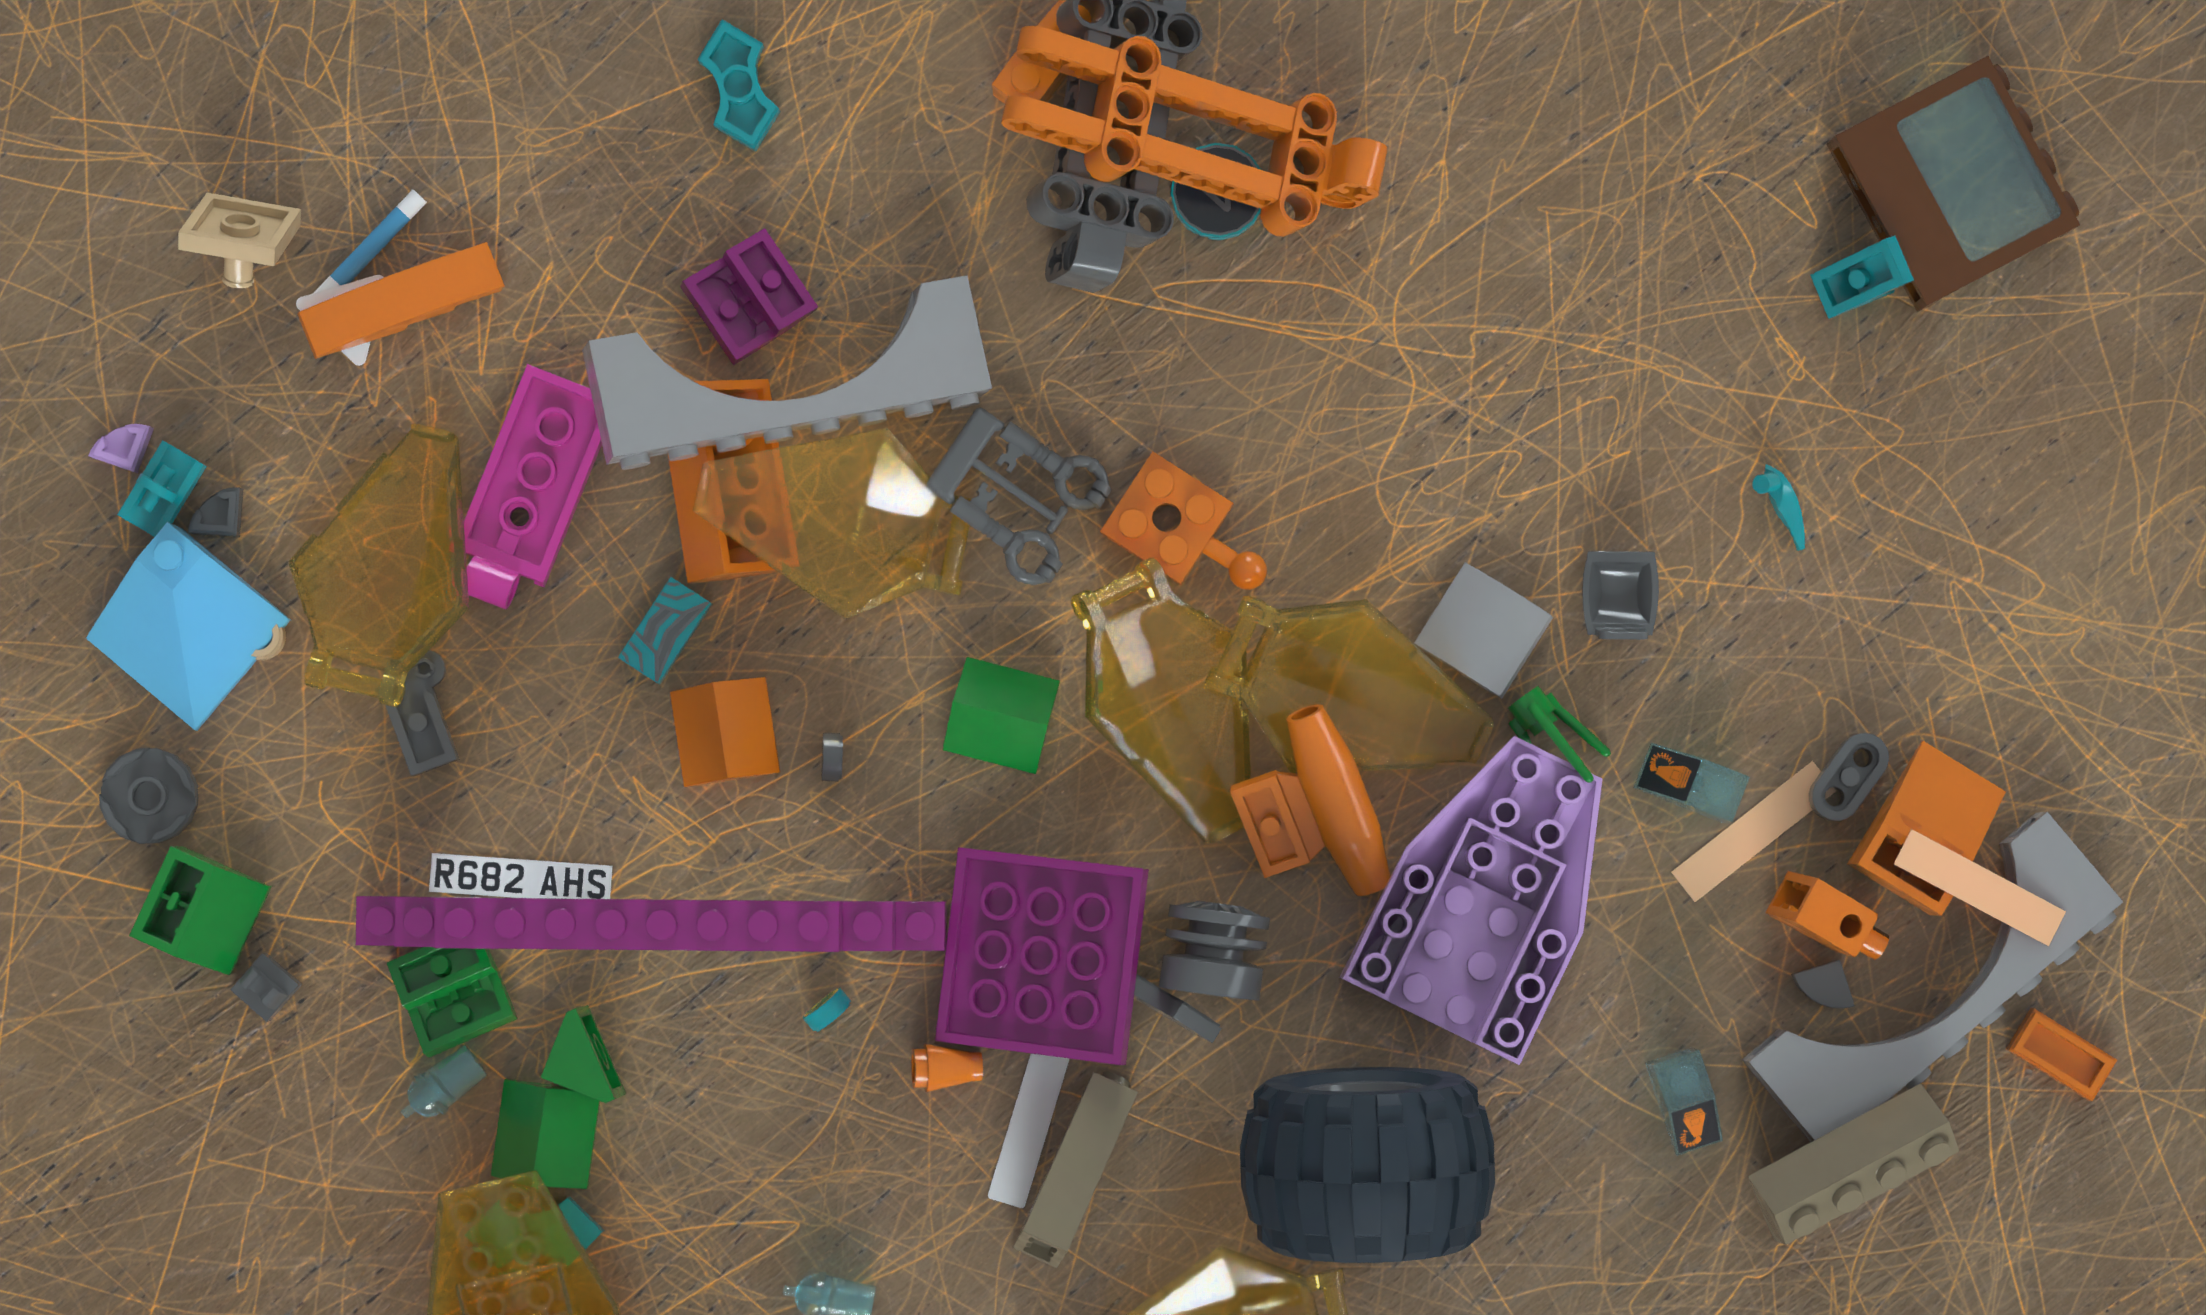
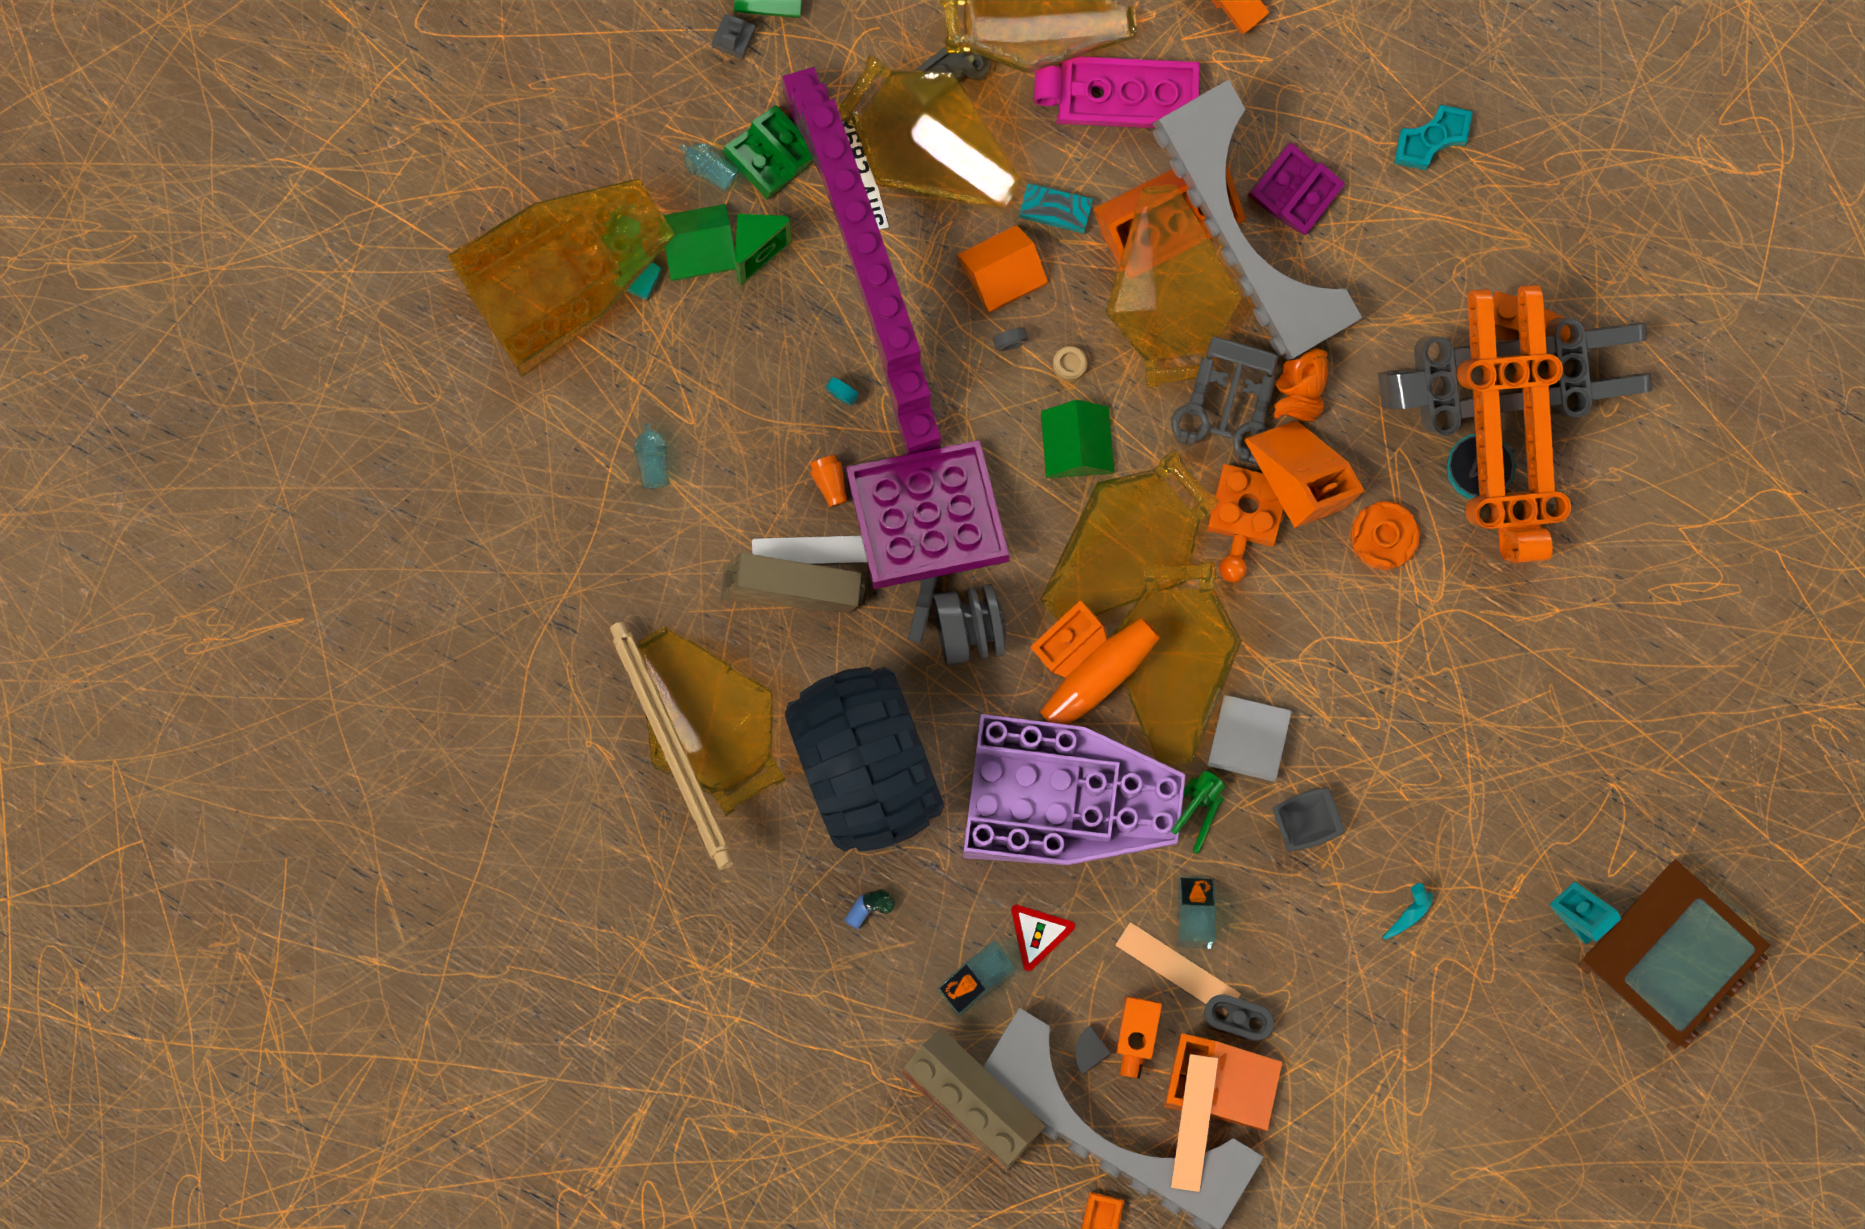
camera: 70 degrees right, 10 degrees down
(509, 772) = (929, 137): none -> clear yellow windscreen
(890, 687) = (1070, 364): none -> tan tile
(1028, 386) = (1303, 383): none -> orange hair
(1151, 430) = (1304, 472): none -> orange slope
(1270, 367) = (1377, 543): none -> orange tile
(1537, 1207) = (867, 903): none -> arm
(1647, 998) = (1038, 934): none -> sticker

